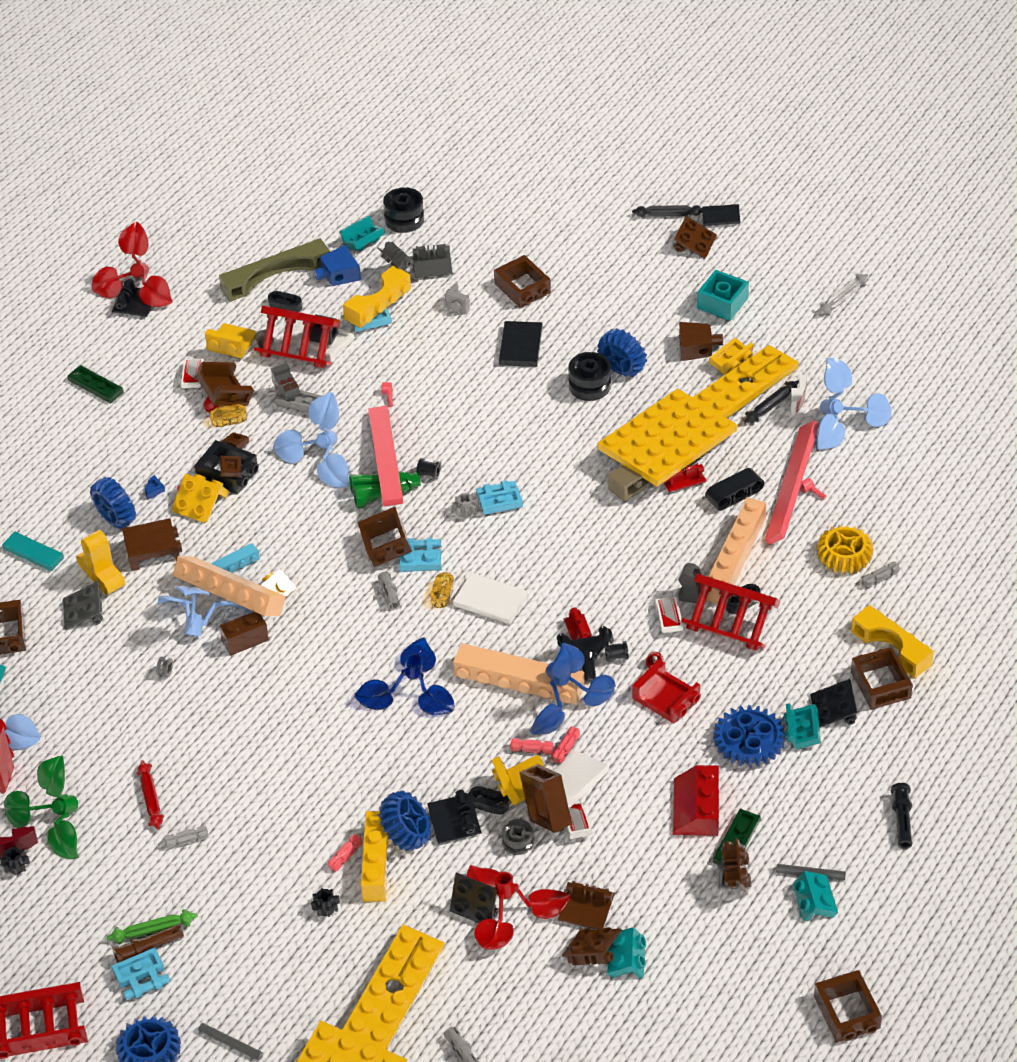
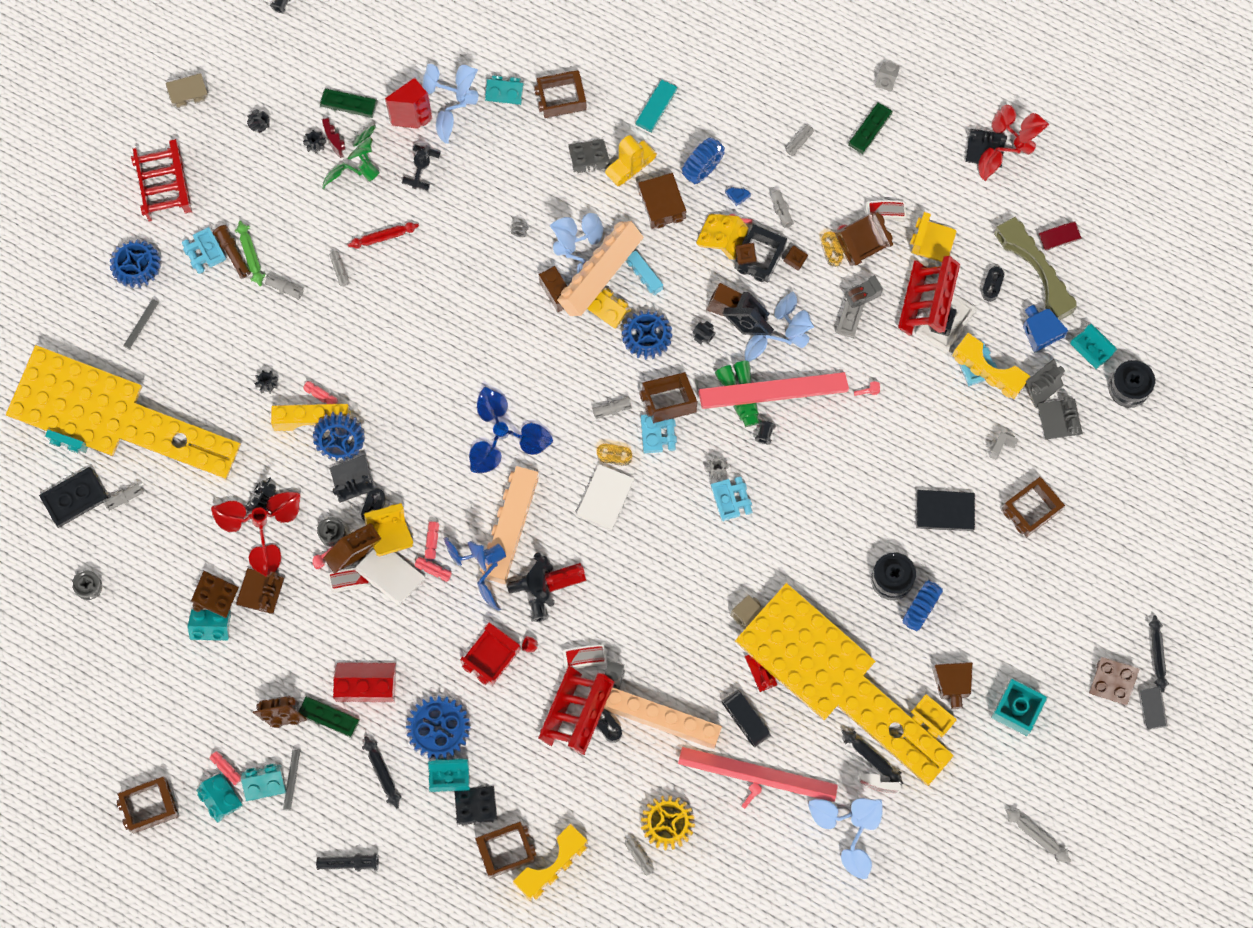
camera: 85 degrees right, 25 degrees up
(38, 364) = (887, 76): none -> light grey bracket
(67, 746) = (421, 161): none -> black axle
(99, 437) = (799, 140): none -> light grey axle
(177, 451) = (781, 209): none -> light grey pin
(202, 890) = (284, 286): none -> light grey pin
(241, 251) = (1060, 236): none -> dark red slope
(280, 491) = (723, 298): none -> reddish brown torso
(306, 467) = (749, 316): none -> black bracket
(307, 554) = (639, 346): none -> blue gear
(311, 511) = (704, 332): none -> black gear
(552, 851) = (318, 560): none -> coral hand
(799, 788) = (381, 772): none -> black wheel
(799, 934) = (225, 768): none -> coral axle
(835, 939) = (218, 797): none -> teal bracket

